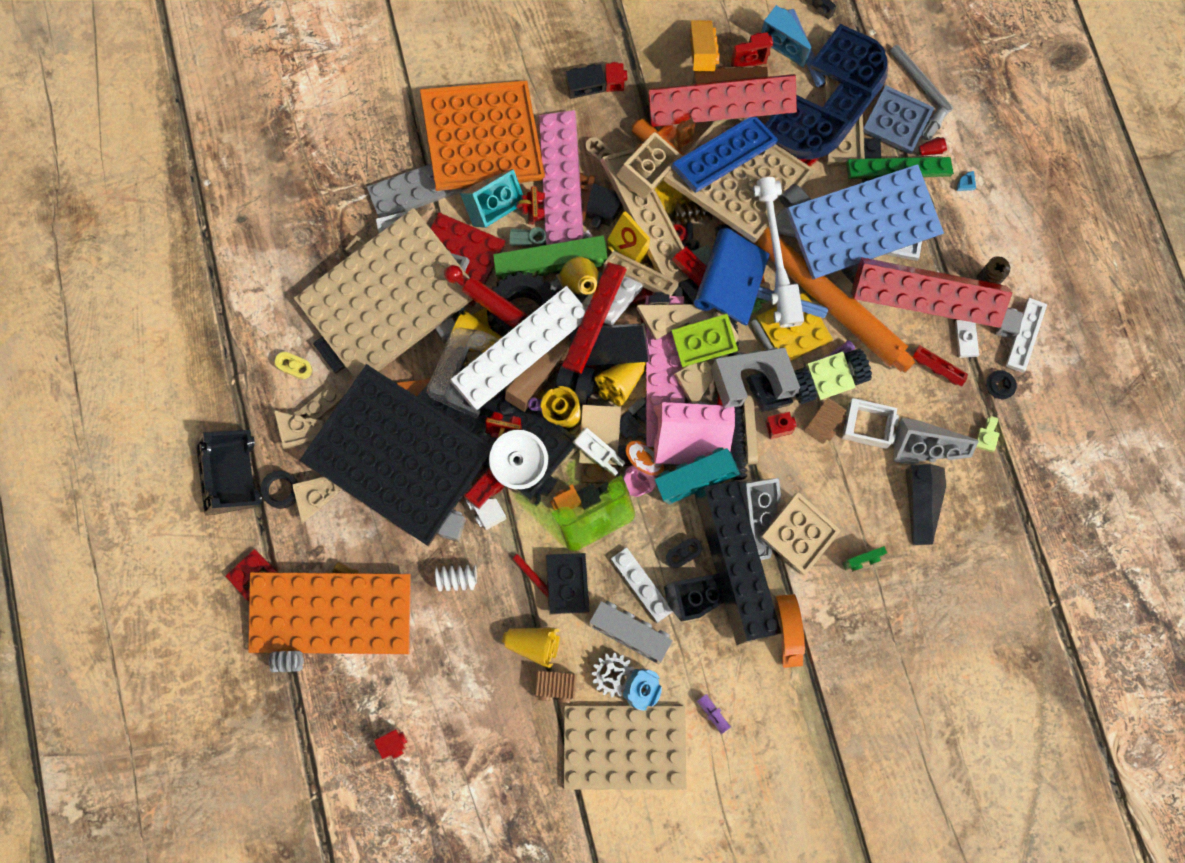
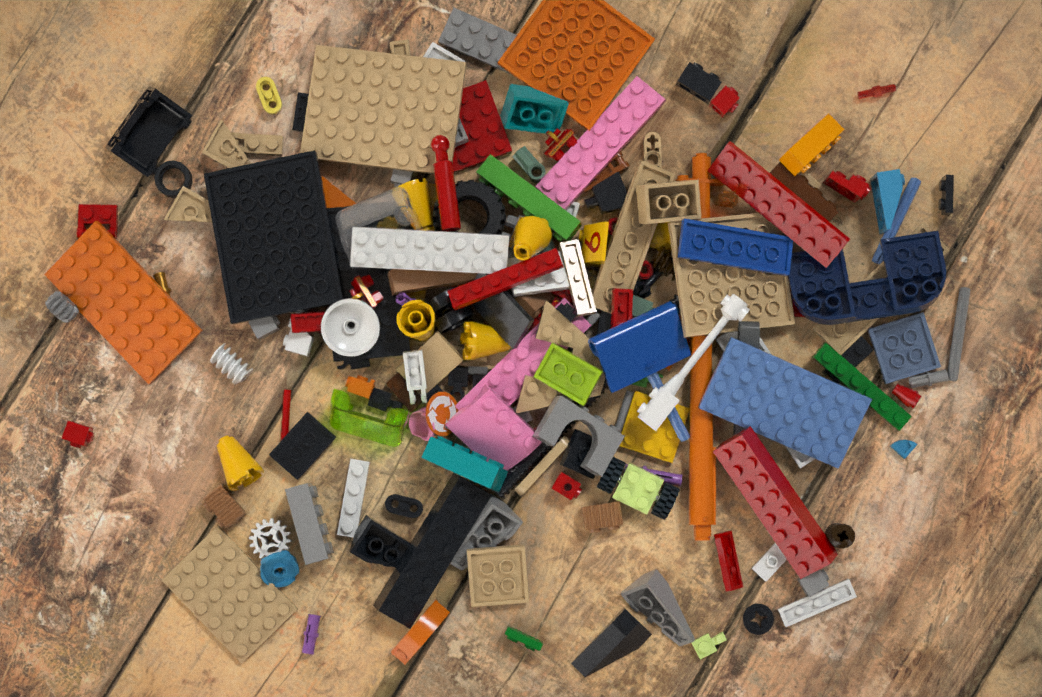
camera: 50 degrees right, 10 degrees up
(892, 420) = (649, 564): white window -> none

